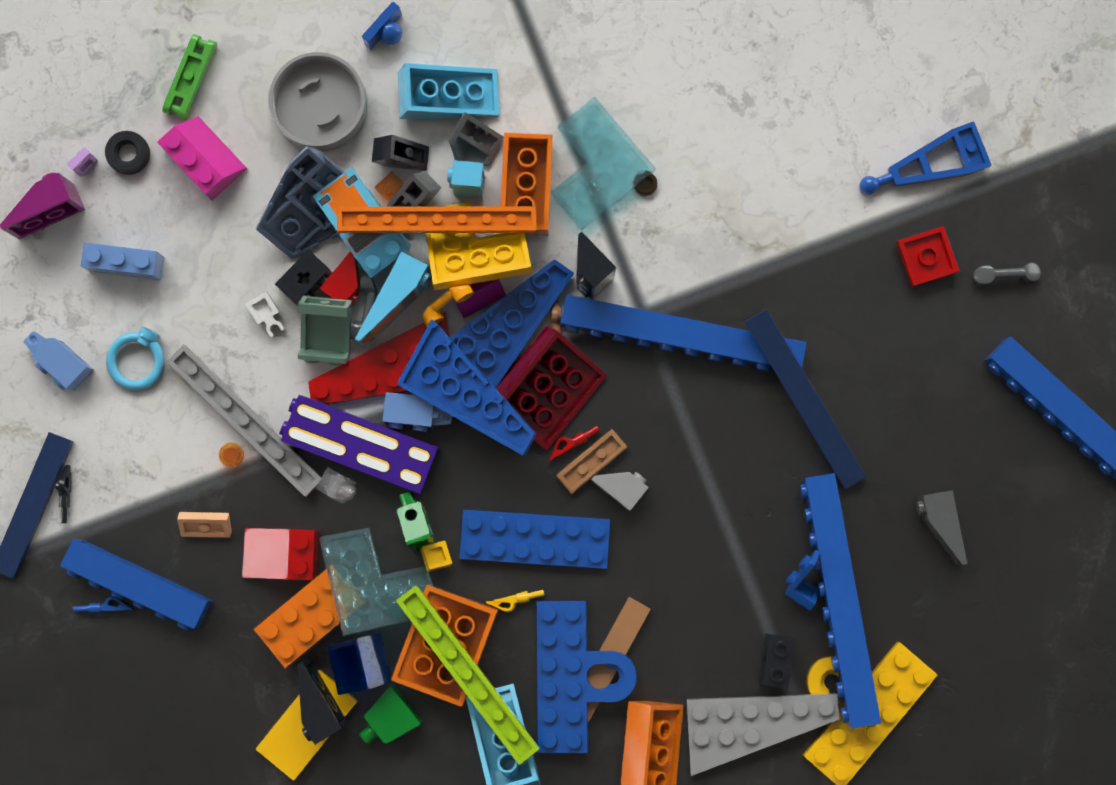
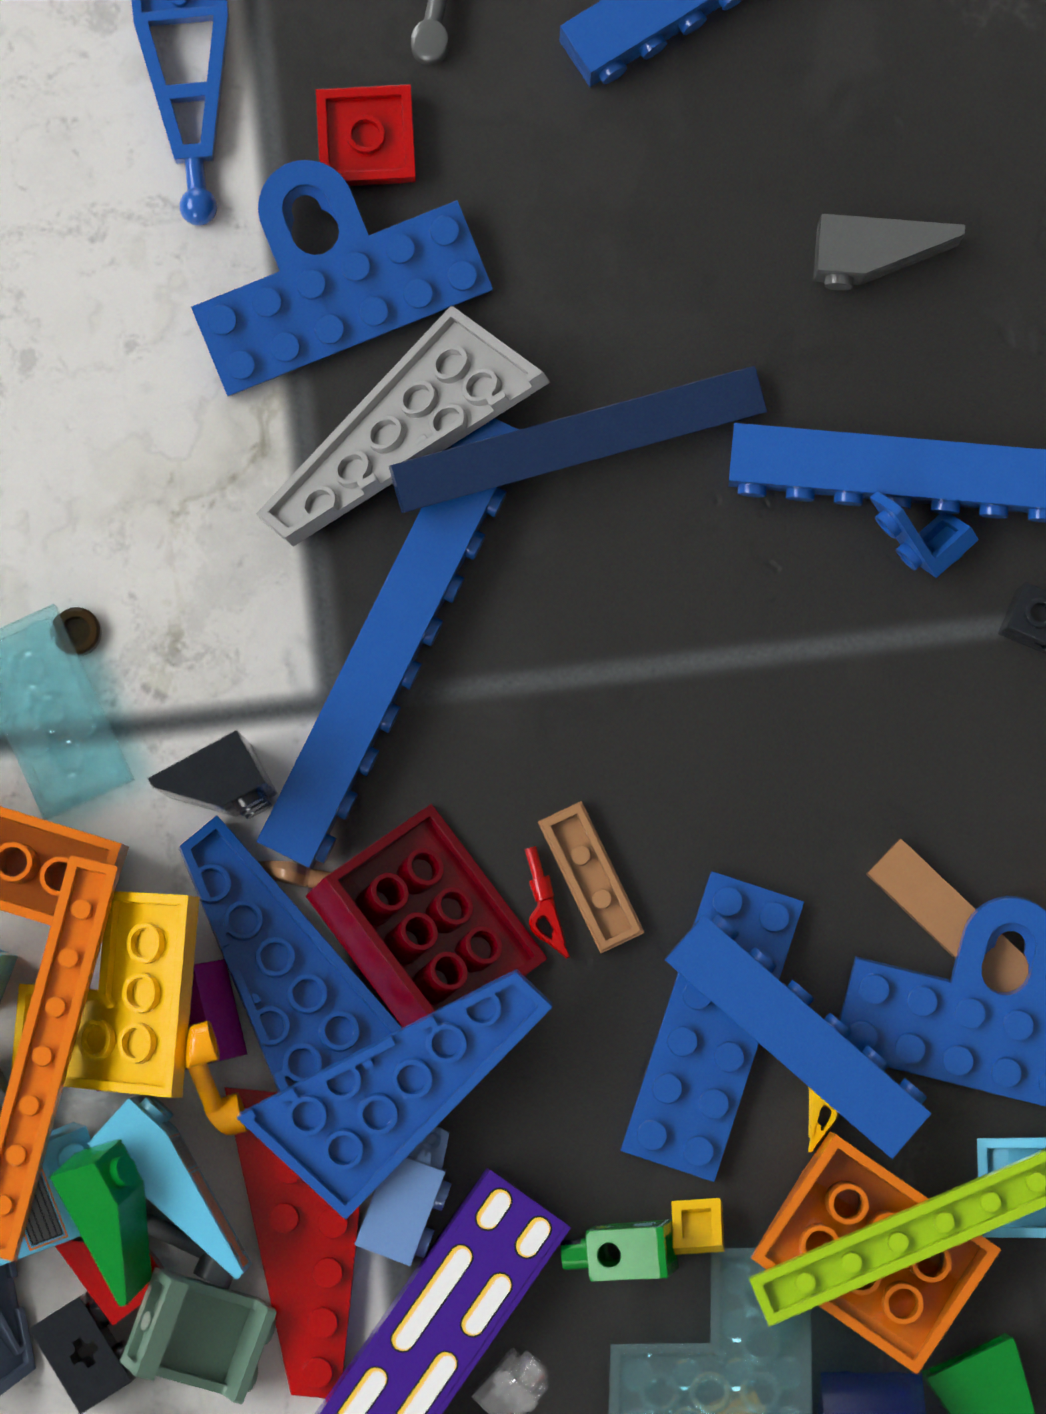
camera: 75 degrees left, 0 degrees up
(373, 269) = (110, 1213): none -> green slope
(539, 581) = (798, 1036): none -> blue brick
(622, 487) = (657, 830): light grey slope -> none
(801, 319) = (424, 404): none -> light grey wing
(843, 264) = (338, 296): none -> blue plate

